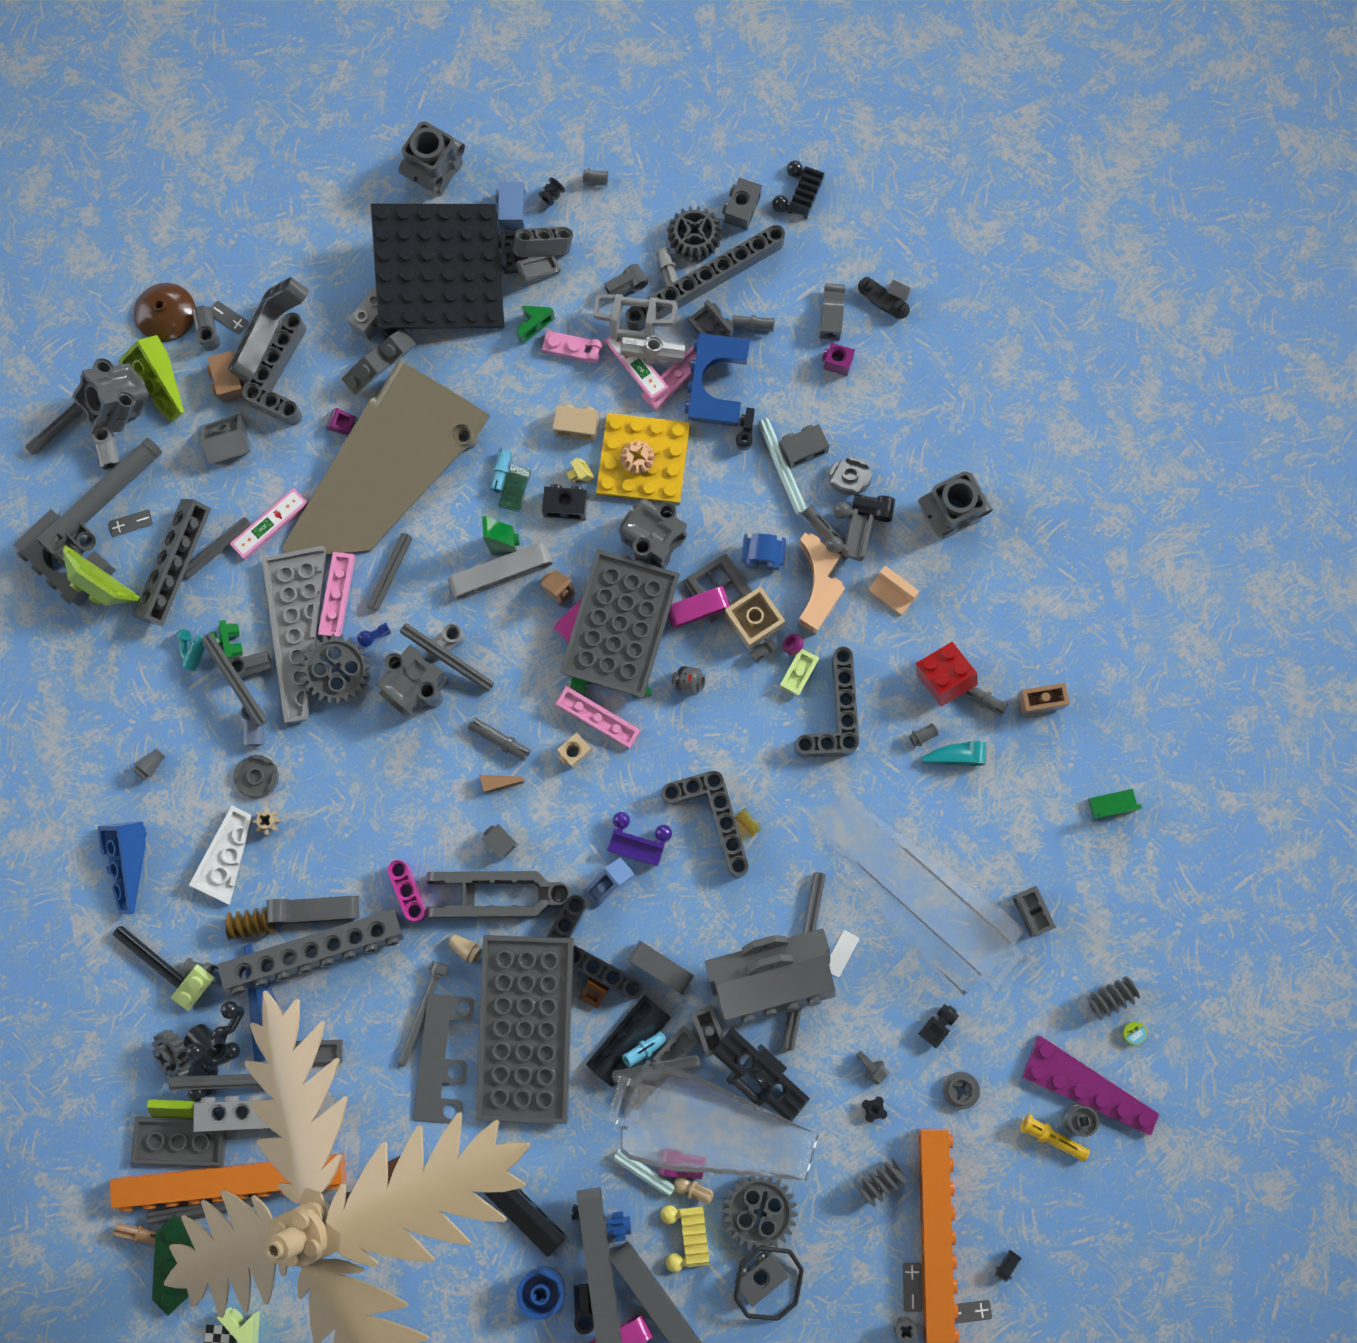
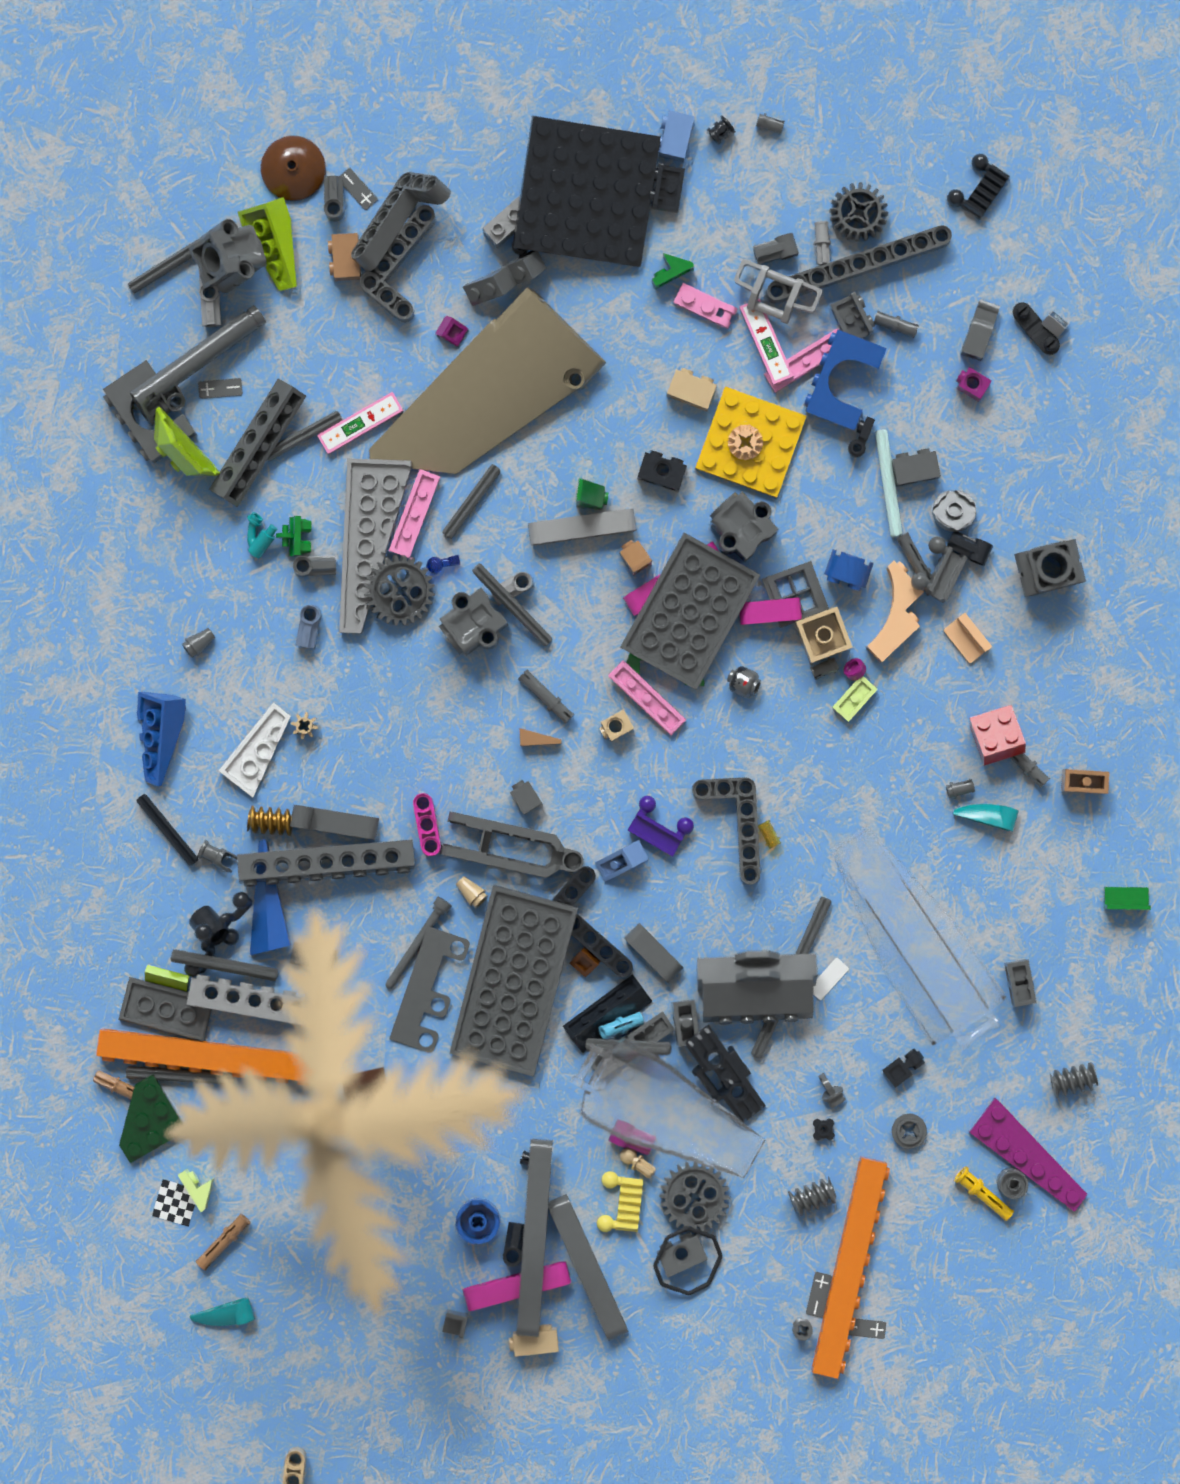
camera: 10 degrees right, 10 degrees up
(170, 1054) = (175, 927): dark grey gear -> none
(192, 987) = (205, 869): yellowish green plate -> none
(225, 439) = (332, 323): dark grey slope -> none
(234, 680) = (300, 581): dark grey axle -> none
(256, 776) = (300, 678): dark grey tile -> none
(431, 157) = (603, 86): dark grey piece -> none
(500, 470) = (604, 421): medium azure pin -> none
(514, 488) = (614, 443): clear green slope -> none
(529, 1219) = (484, 1163): black panel -> none
(537, 268) = (688, 212): dark grey tile -> none
(542, 241) = (700, 188): dark grey beam -> none
(580, 472) = (685, 442): light yellow tile -> none
(618, 1226) = (561, 1179): blue gear -> none
(645, 1174) = (595, 1137): light aqua axle -> none
(652, 349) = (774, 329): light grey piece -> none
(745, 192) = (913, 203): dark grey brick -> none
(841, 711) = (885, 747): dark grey beam -> none
(1007, 1266) = (910, 1296): black pin -> none
(1134, 1033) = (1085, 1116): tile -> none

